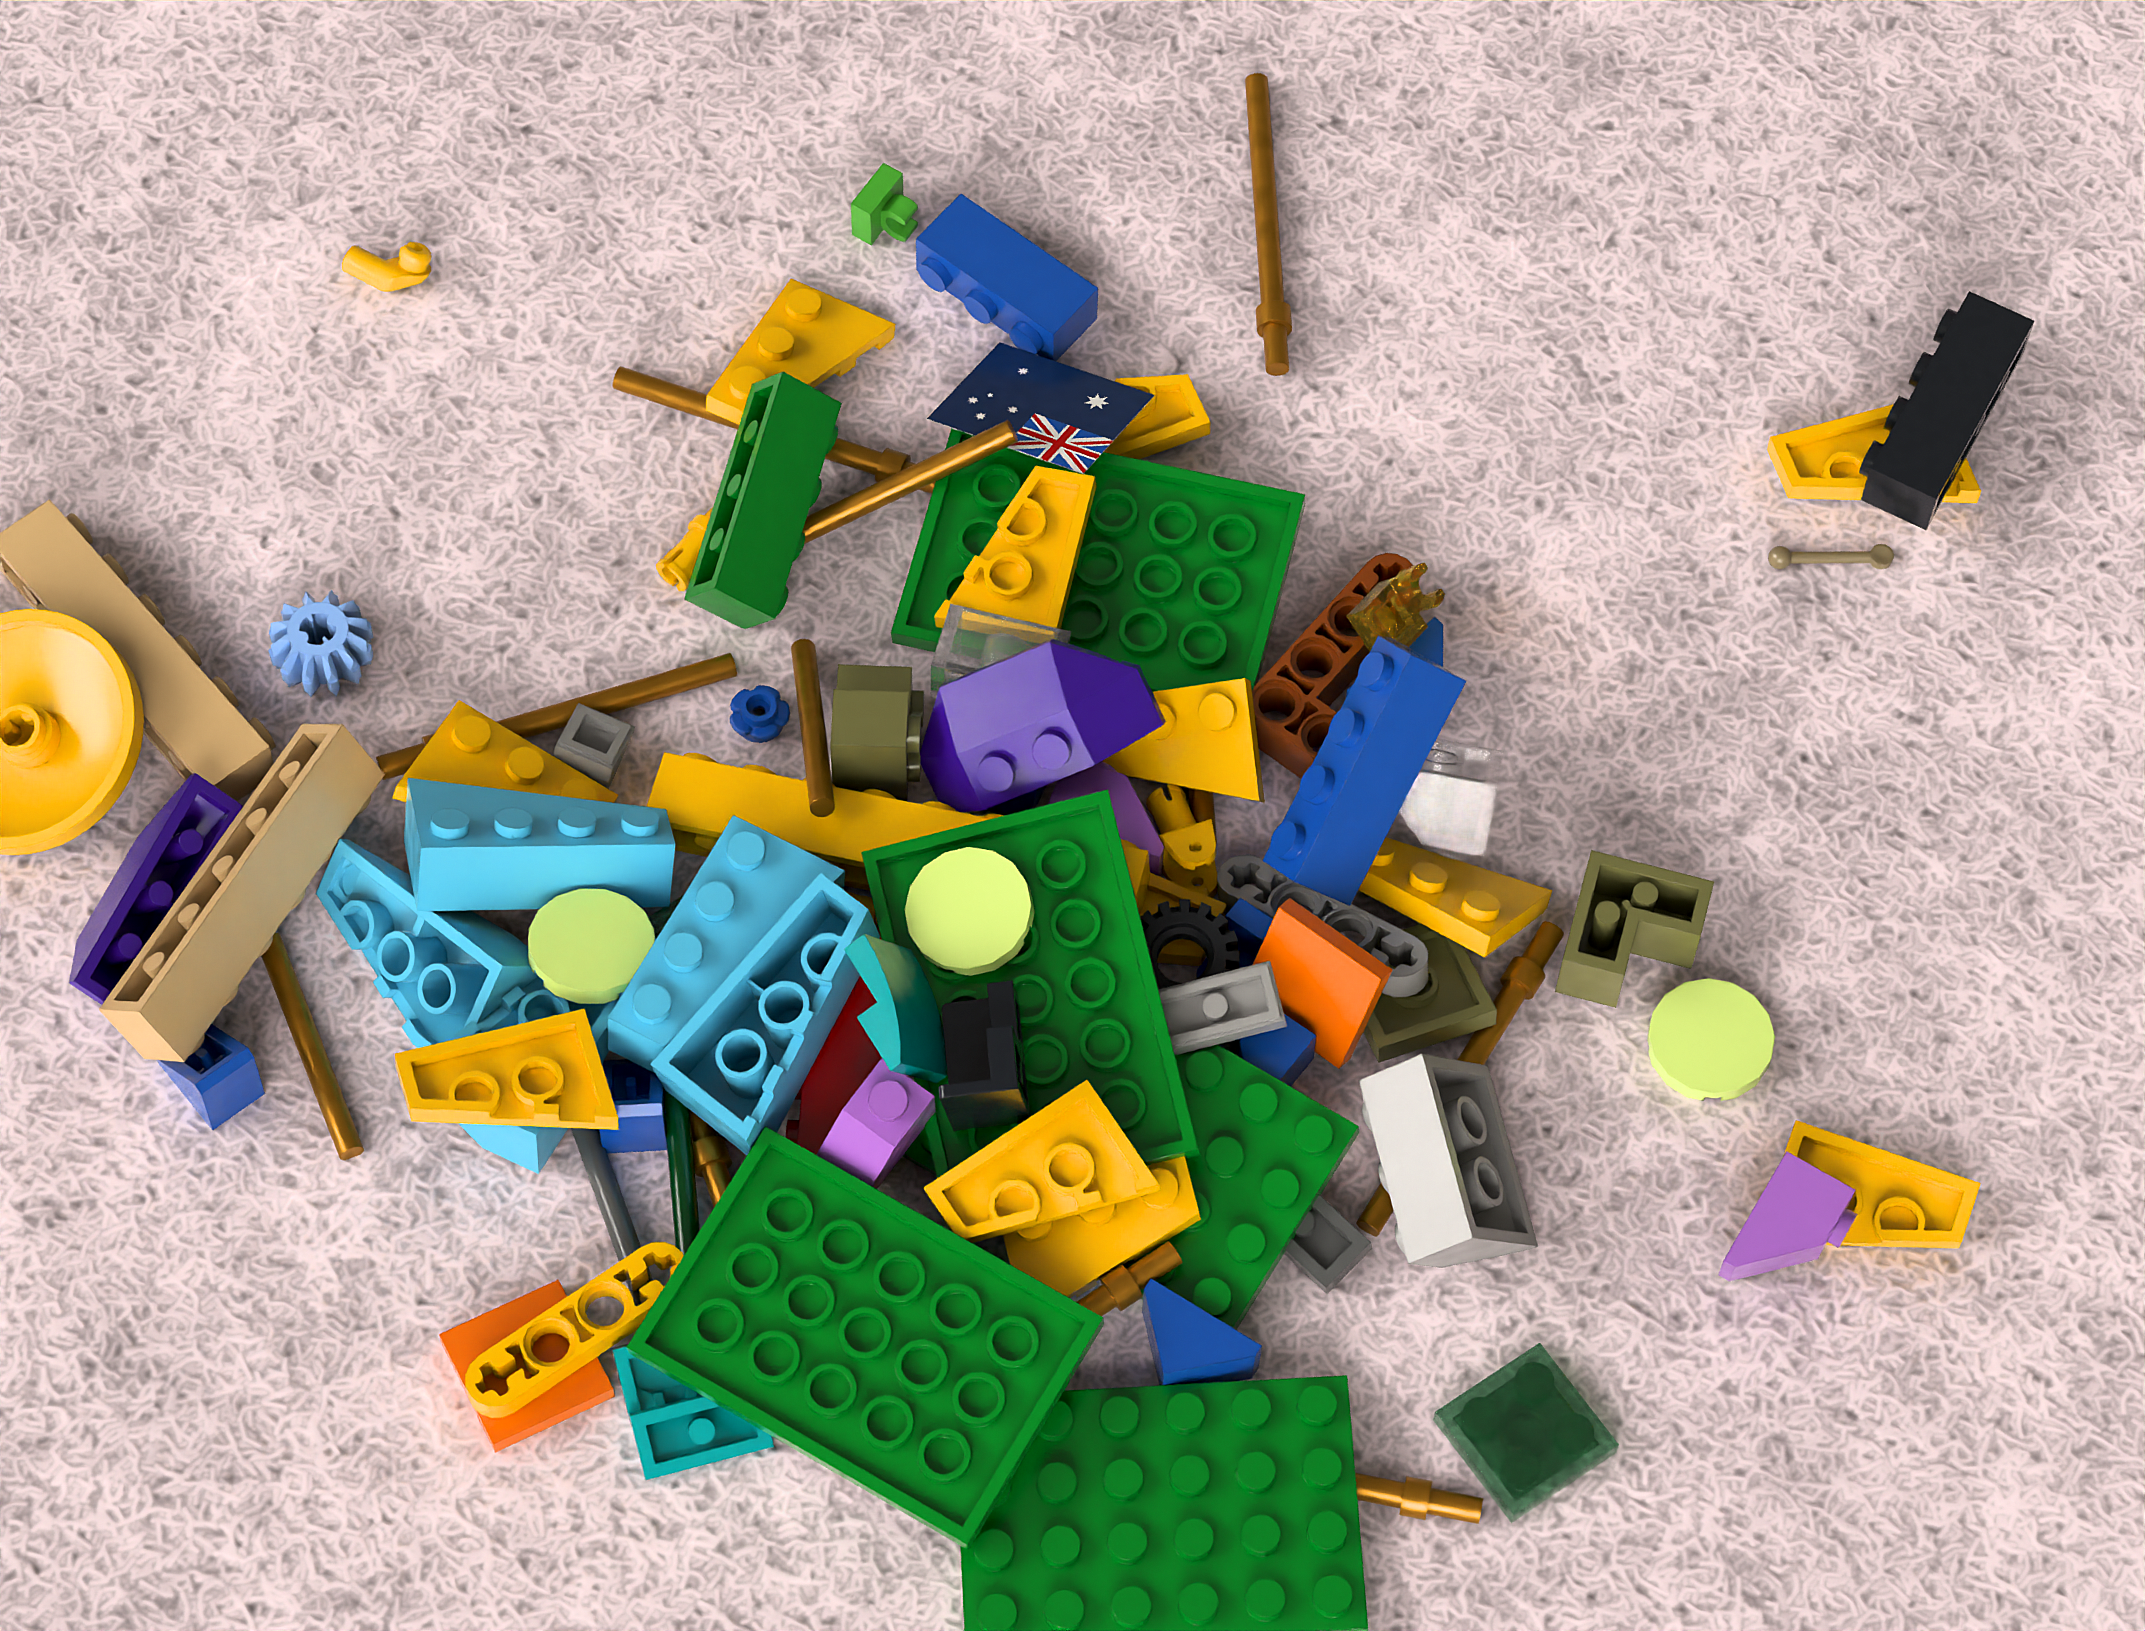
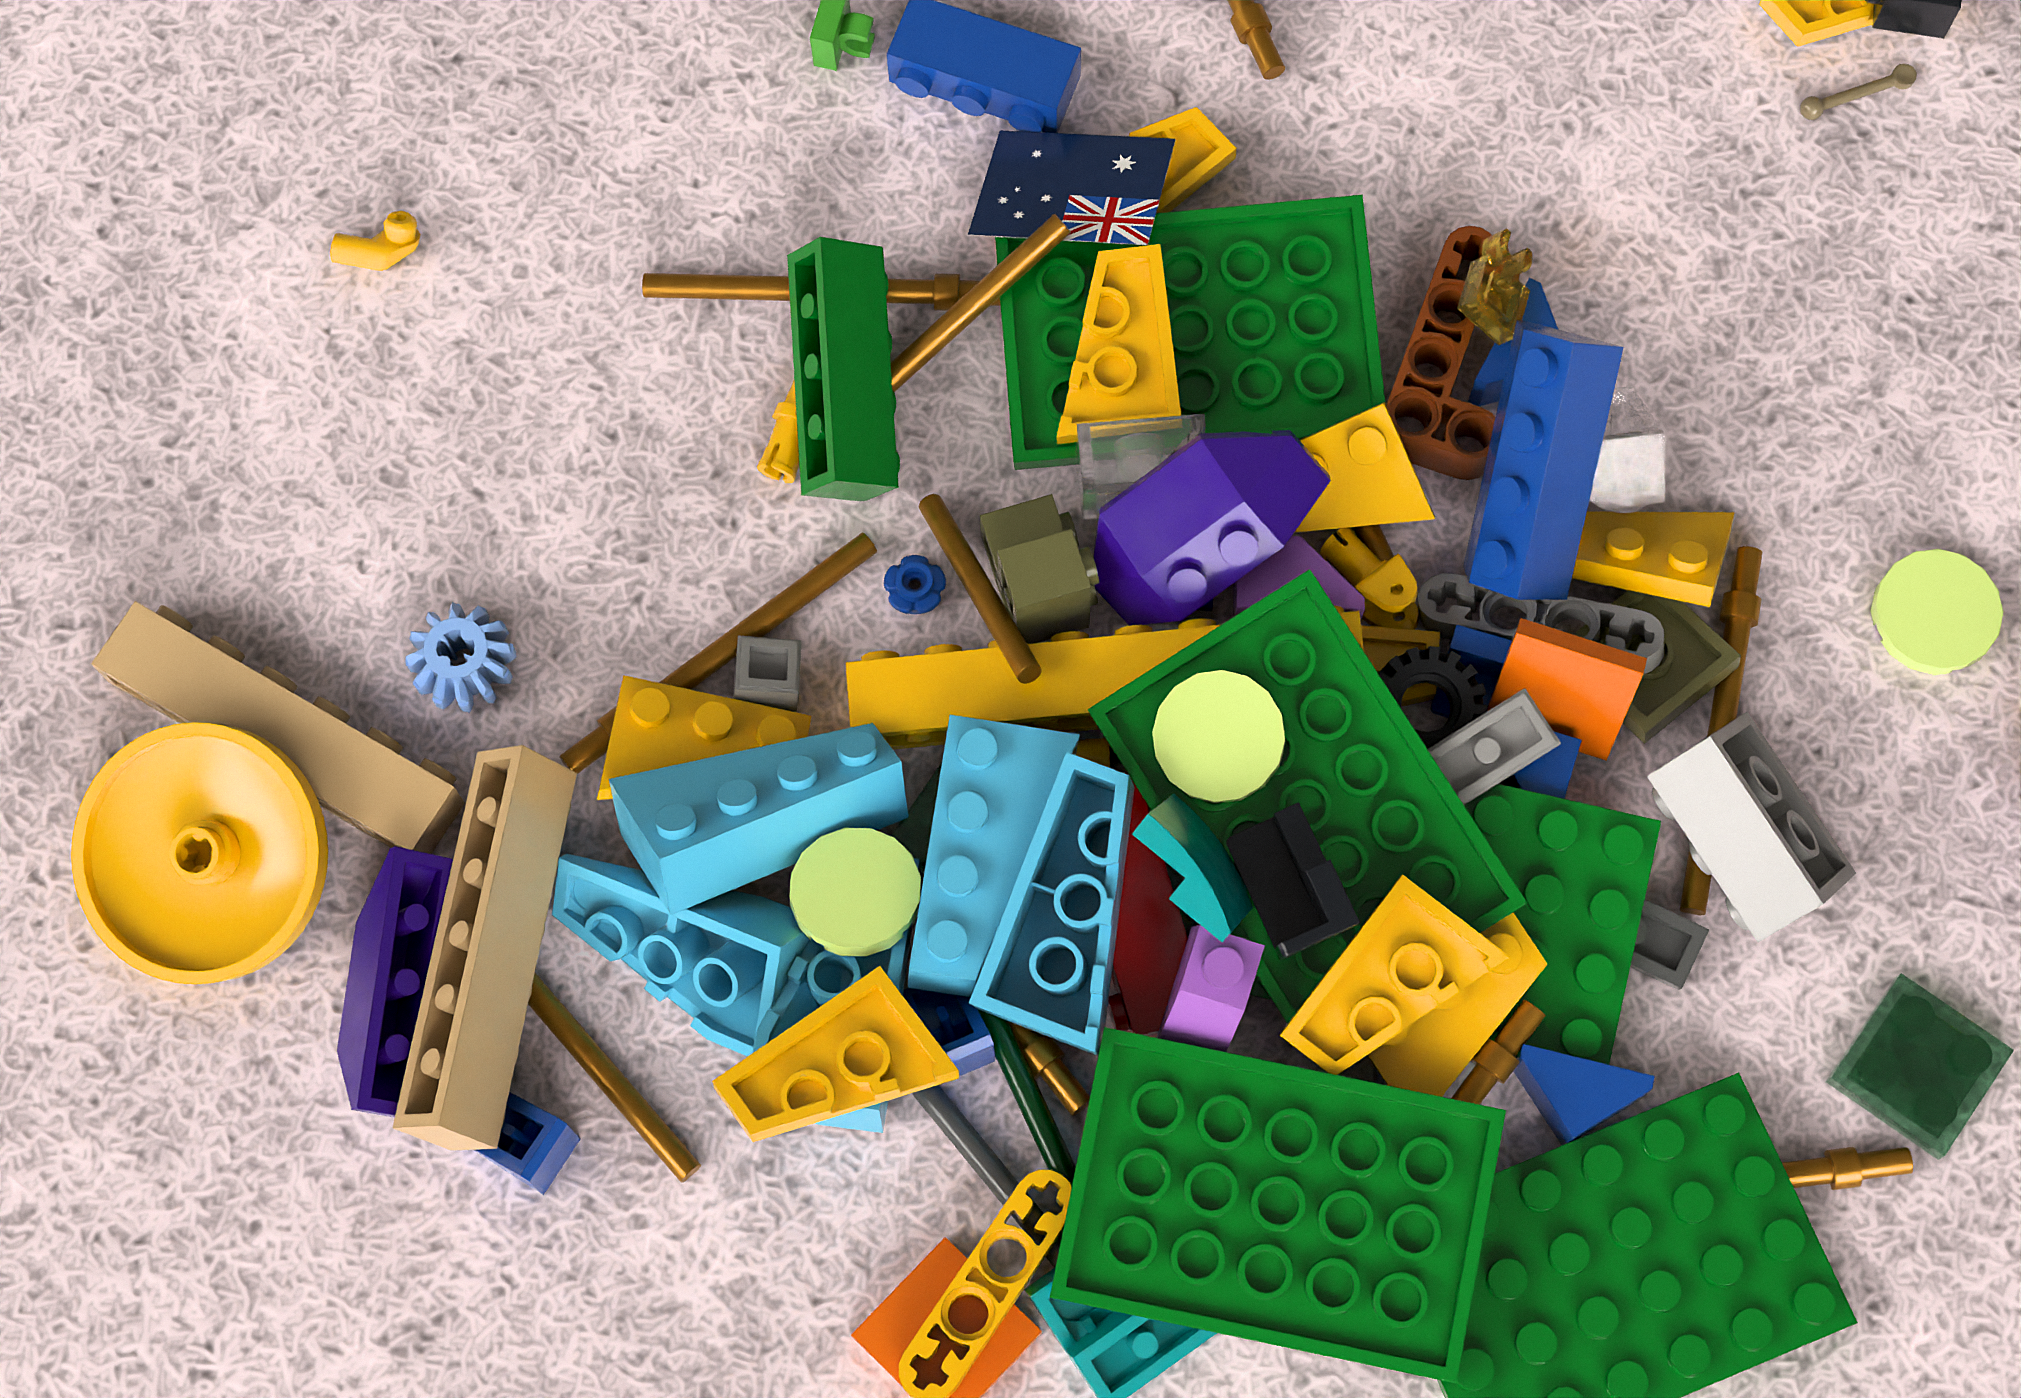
camera: 15 degrees left, 10 degrees up
(802, 336) = (808, 194): yellow wing -> none
(1627, 911) = (1816, 519): olive brick -> none

